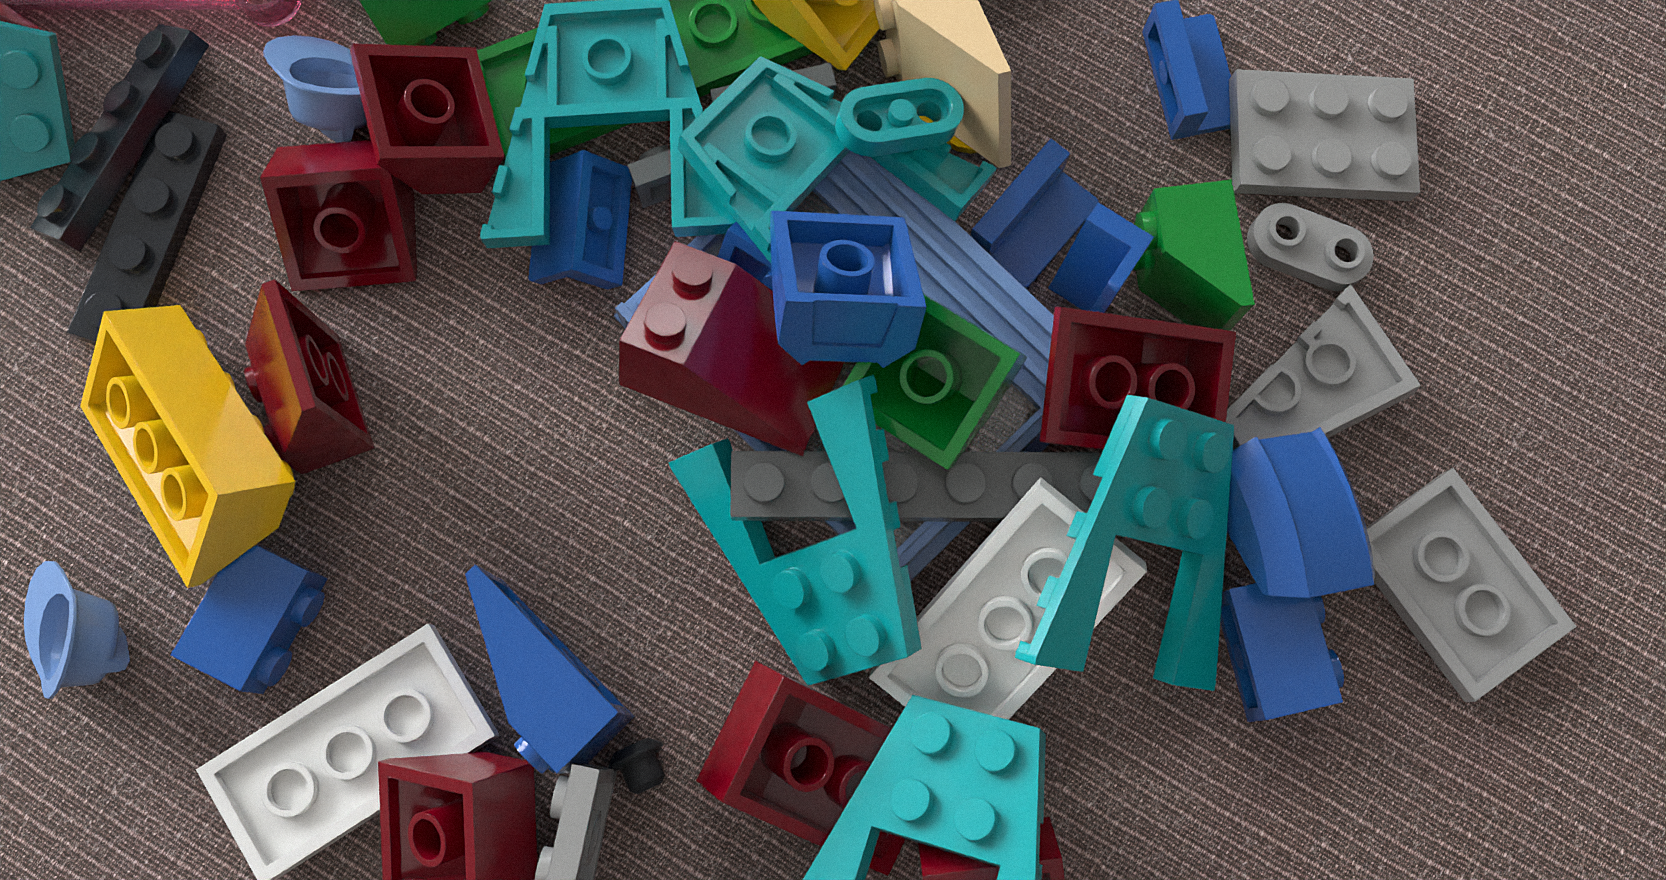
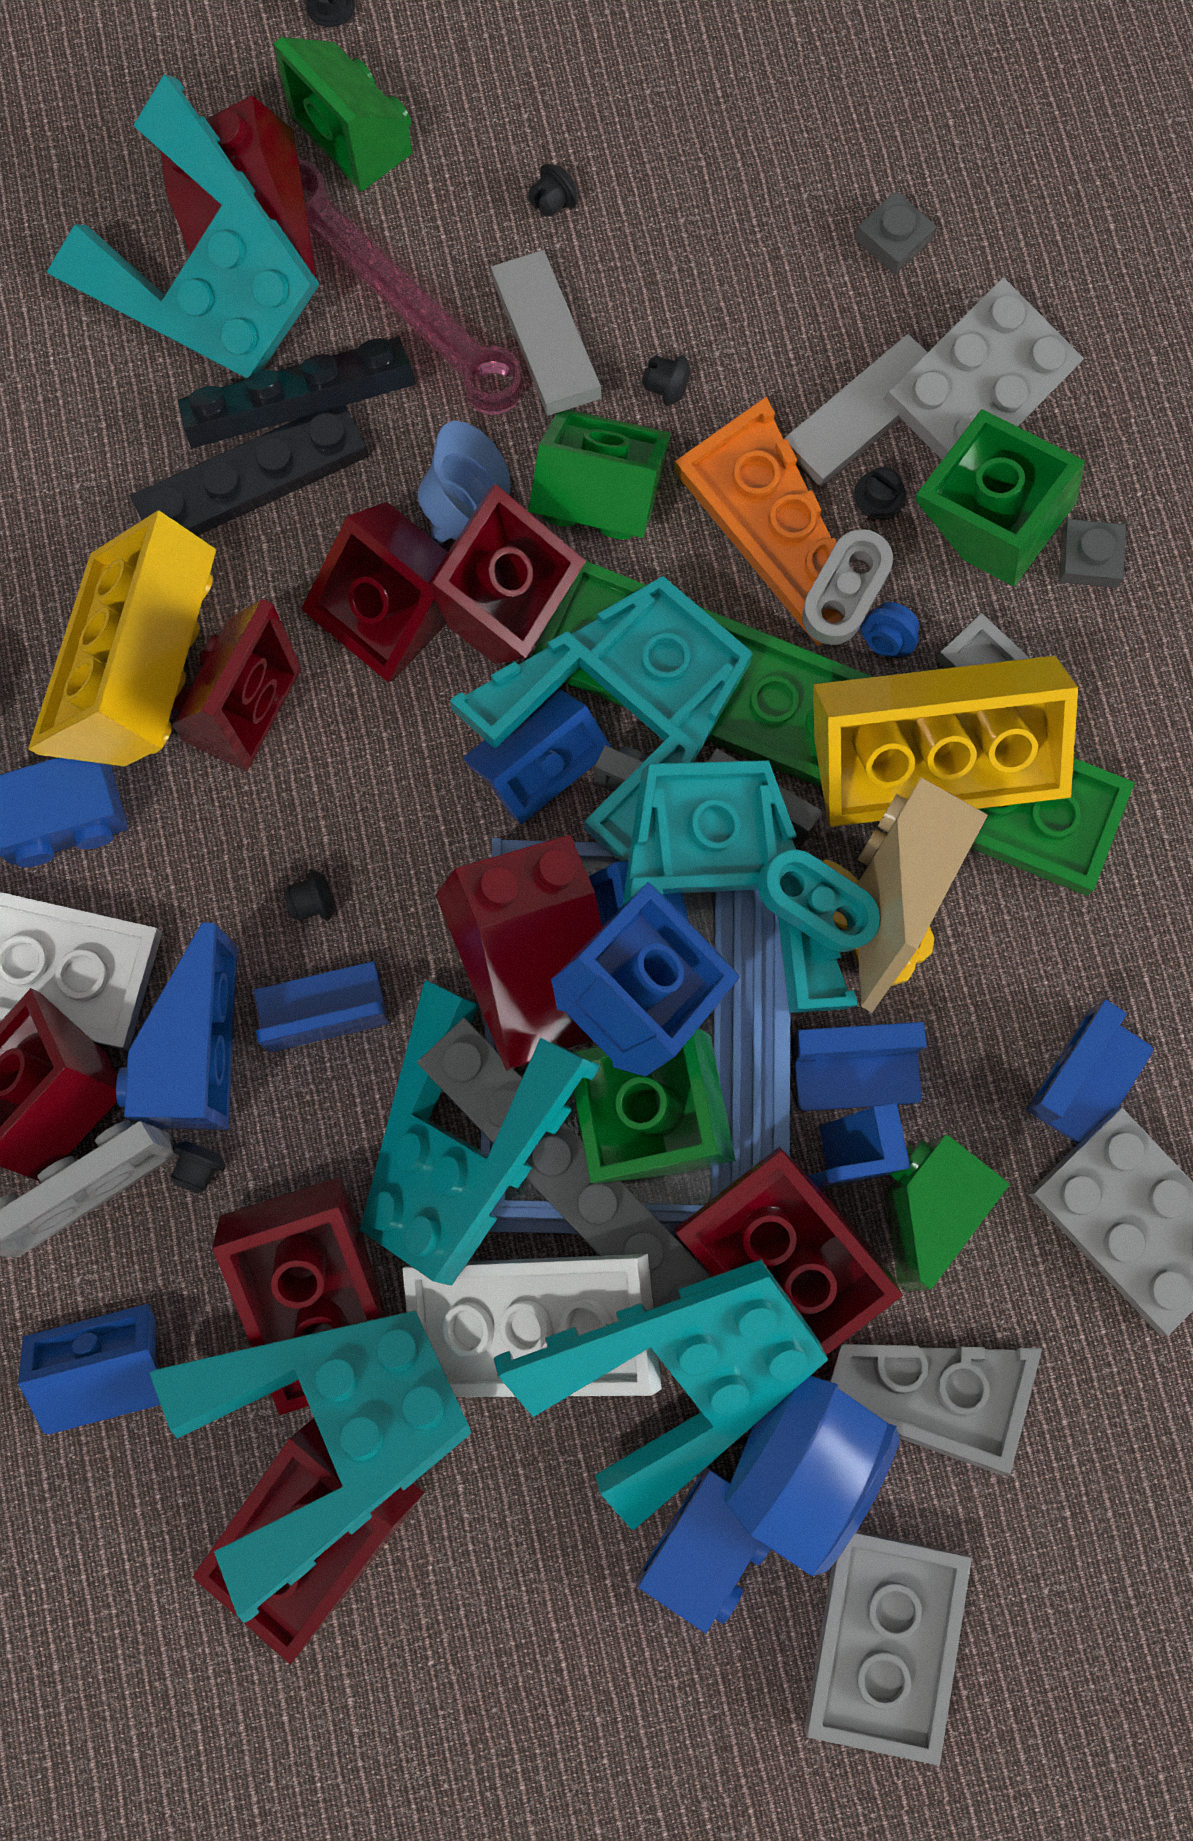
camera: 45 degrees right, 0 degrees up
(521, 488) = (310, 897): none -> black piece
(612, 558) = (320, 1007): none -> blue panel
(1312, 249) = (1043, 1292): light grey plate -> none

